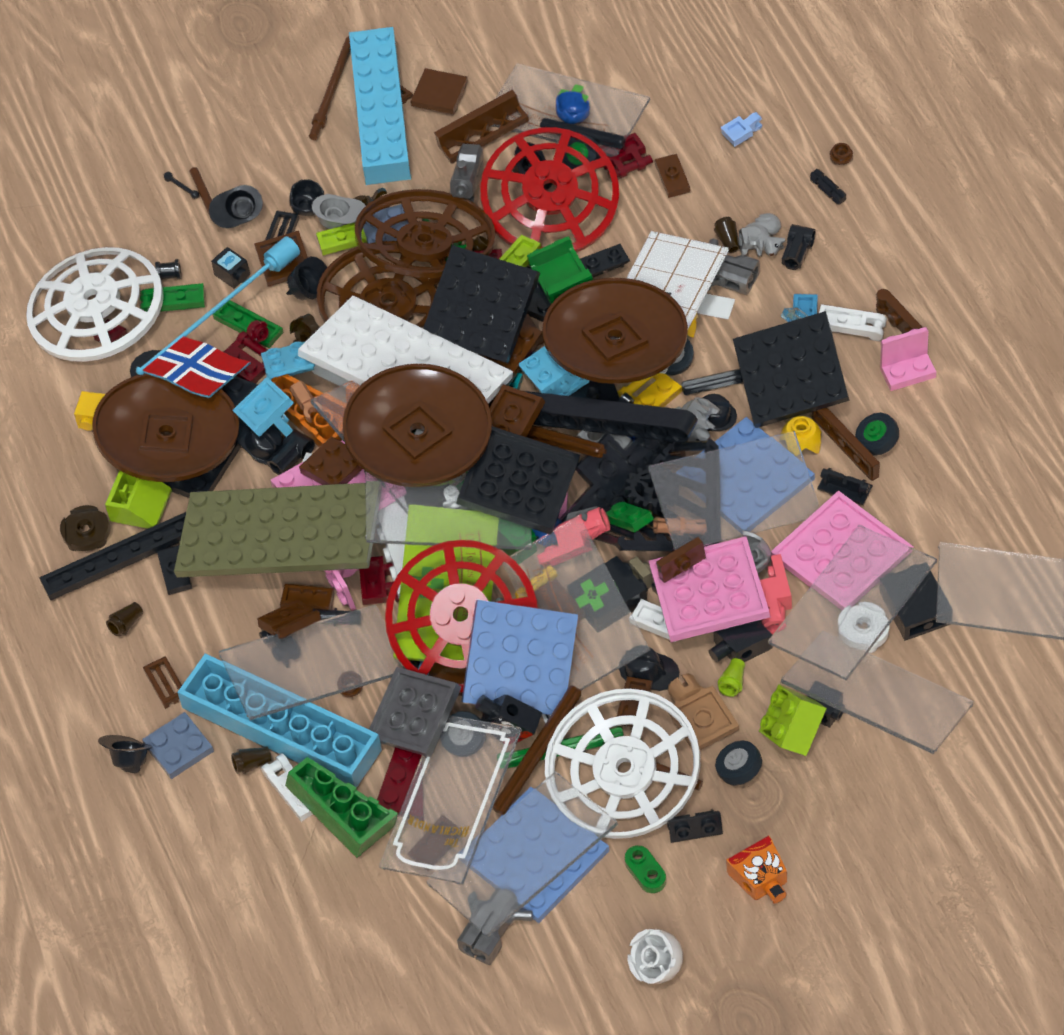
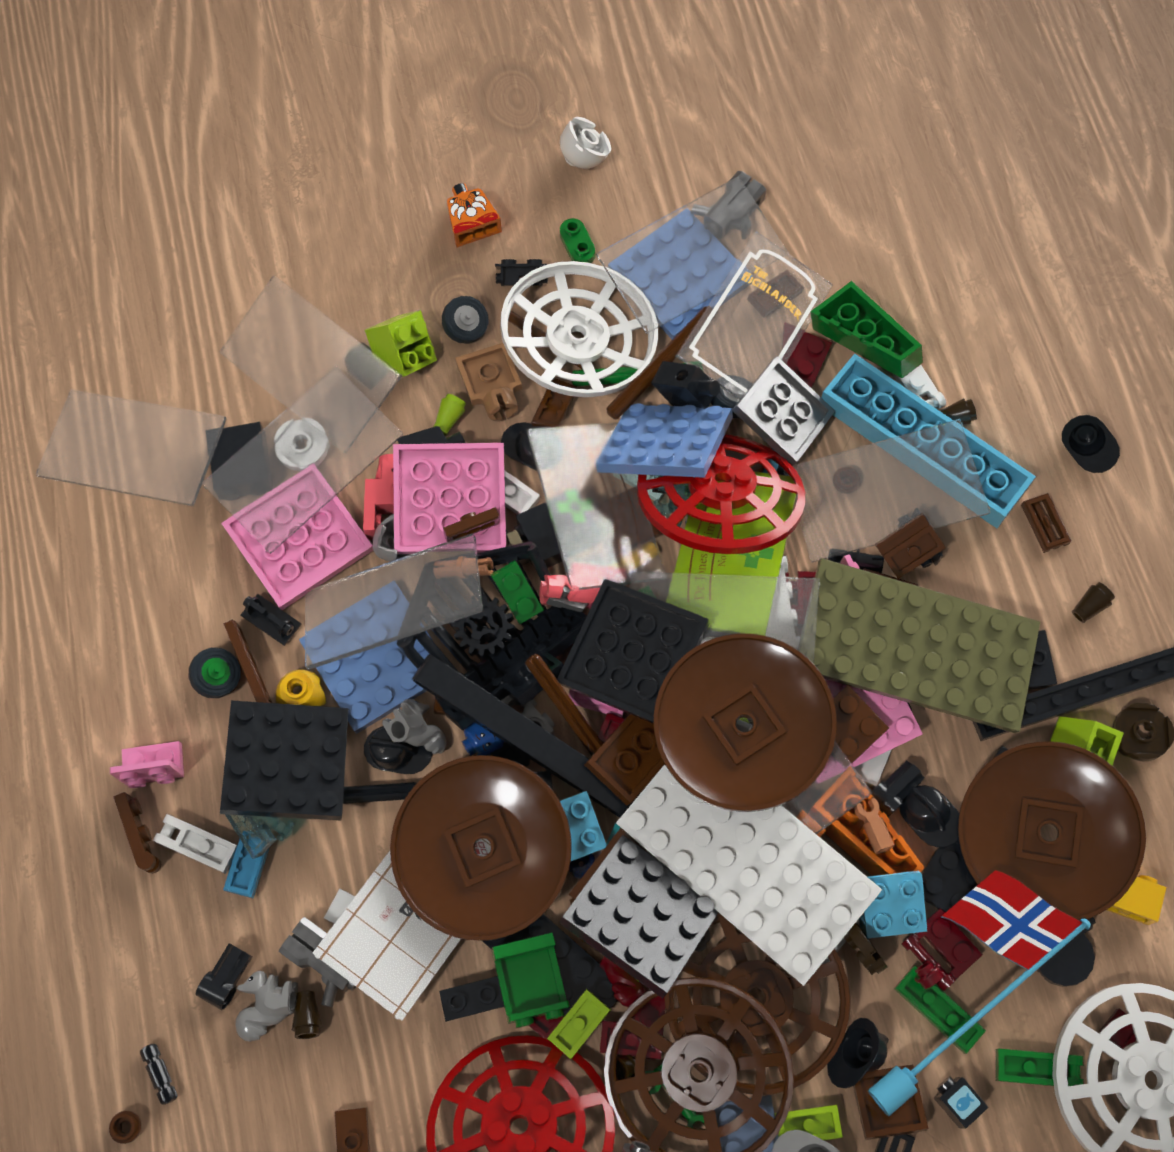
camera: 175 degrees left, 15 degrees up
(169, 269) = (1045, 1118): black bush -> none
(178, 745) = (1033, 445): sand blue plate -> none
(265, 407) = (927, 828): medium azure bracket -> none

